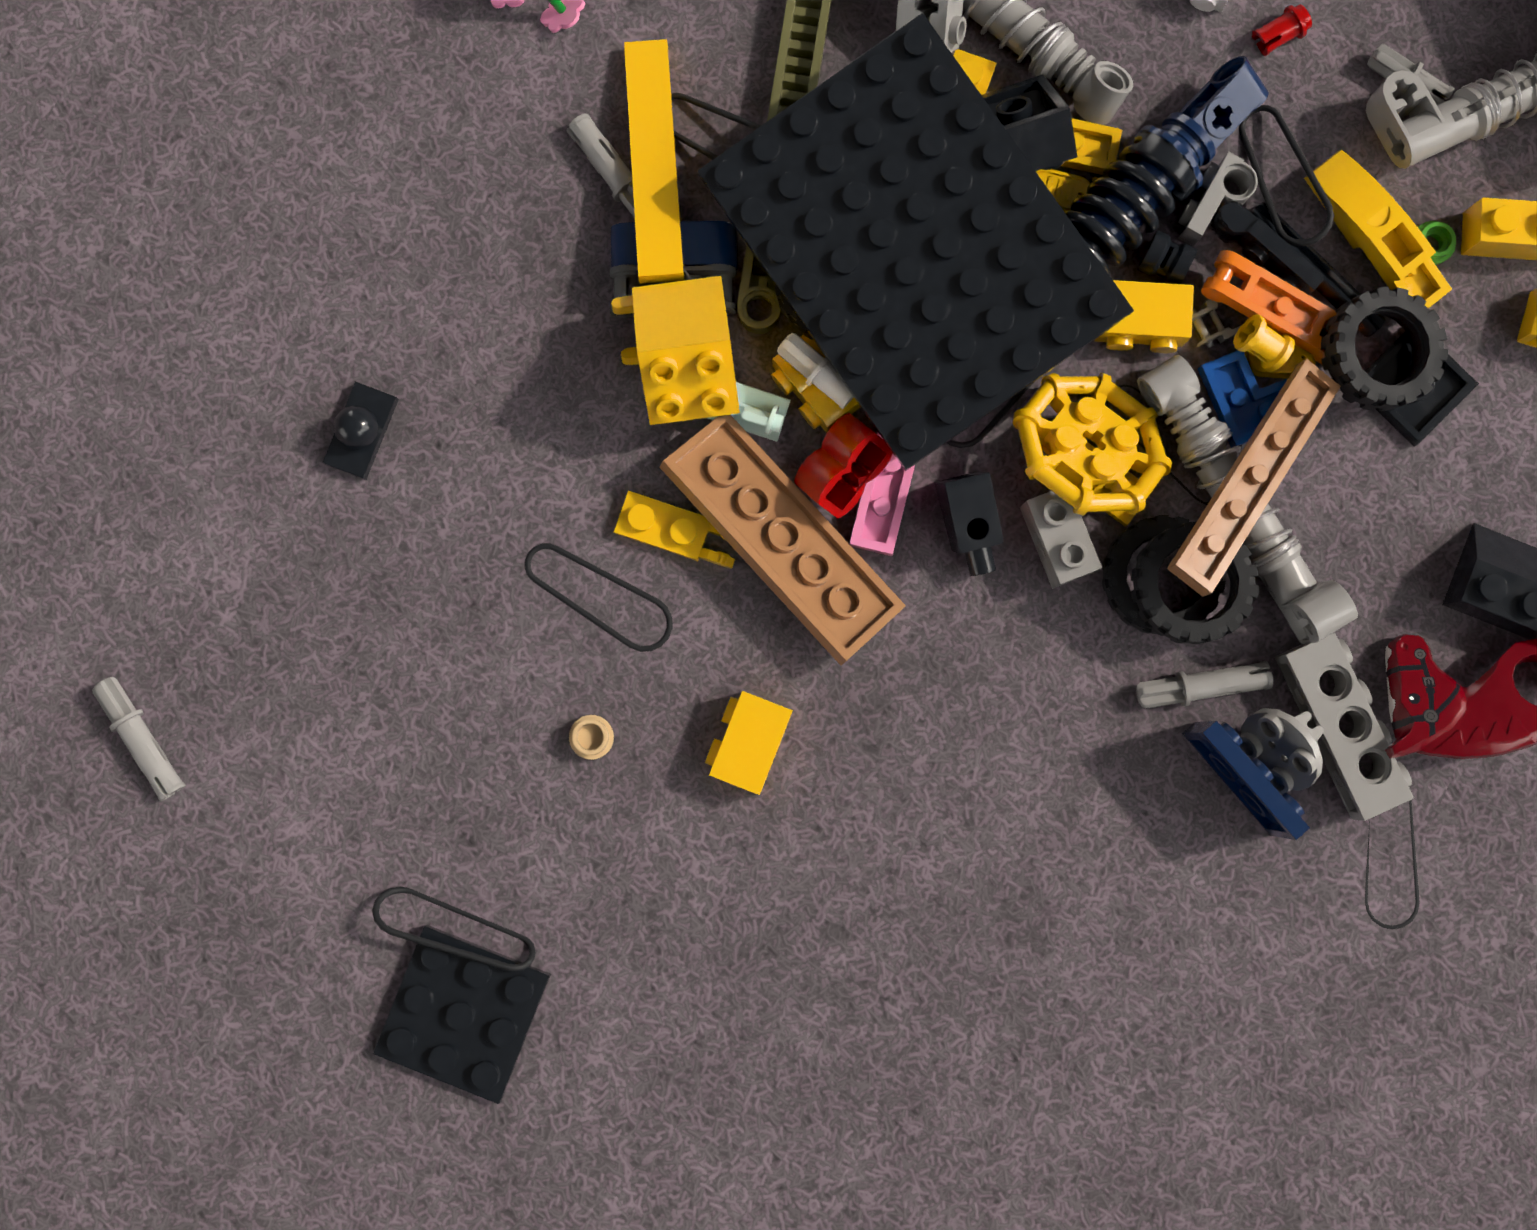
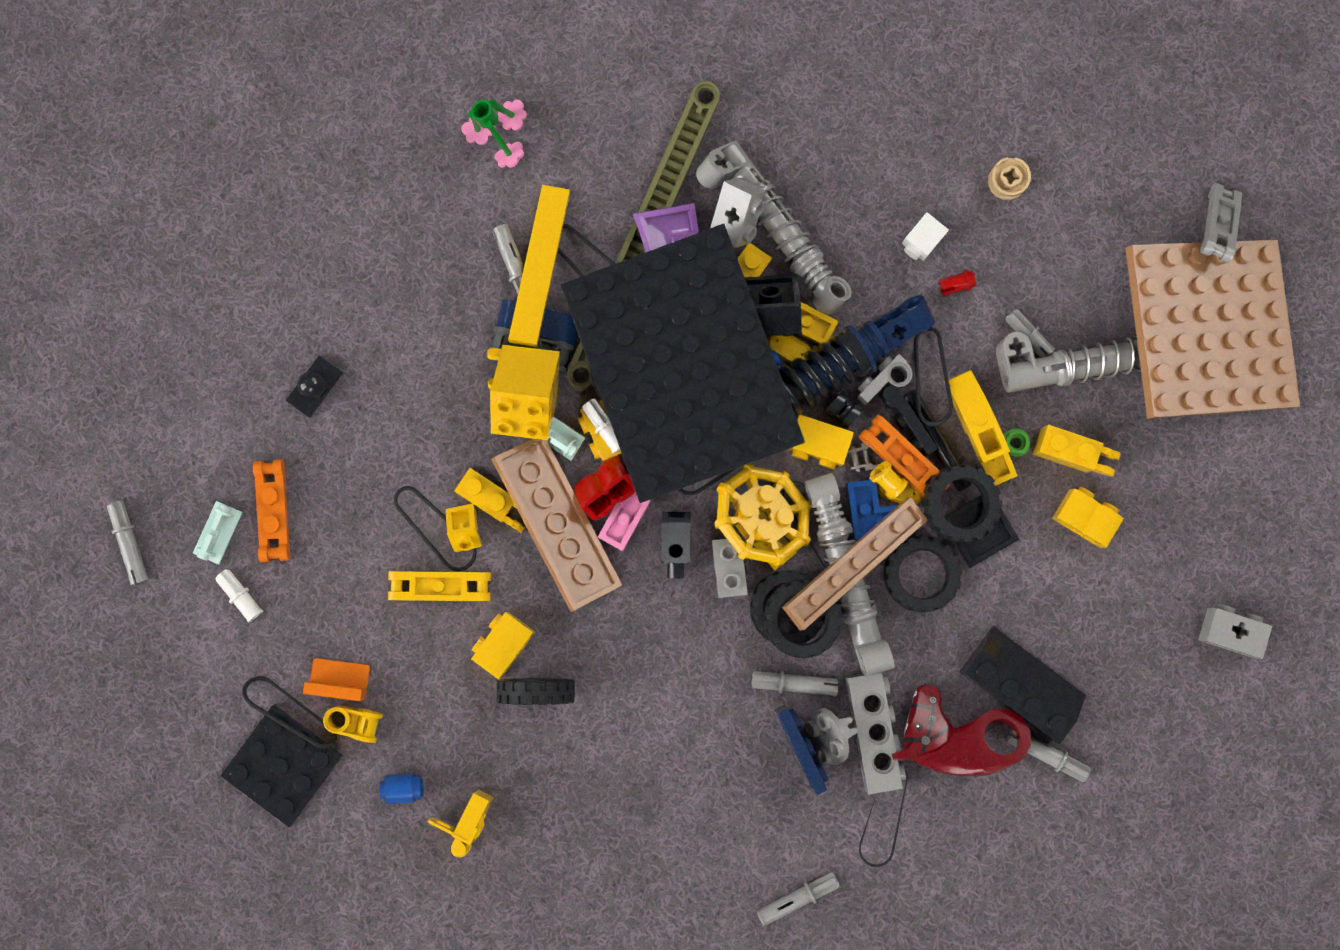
camera: 15 degrees right, 0 degrees up
(271, 688) = (217, 533): none -> light aqua hinge
(329, 773) = (238, 595): none -> white axle
(345, 633) = (271, 510): none -> orange plate
(513, 861) = (338, 680): none -> orange panel
(558, 919) = (355, 723): none -> yellow piece
(591, 737) = (406, 615): tan plate -> none
(629, 680) = (439, 586): none -> yellow plate
(642, 583) = (463, 528): none -> yellow bracket
(654, 999) = (401, 788): none -> blue brick
(774, 1029) = (469, 824): none -> yellow piece
(822, 797) = (535, 691): none -> black tyre
(826, 48) = (666, 225): none -> medium lavender plate
(1301, 1004) = (800, 898): none -> light grey axle
(1395, 465) = (951, 566): none -> black tyre

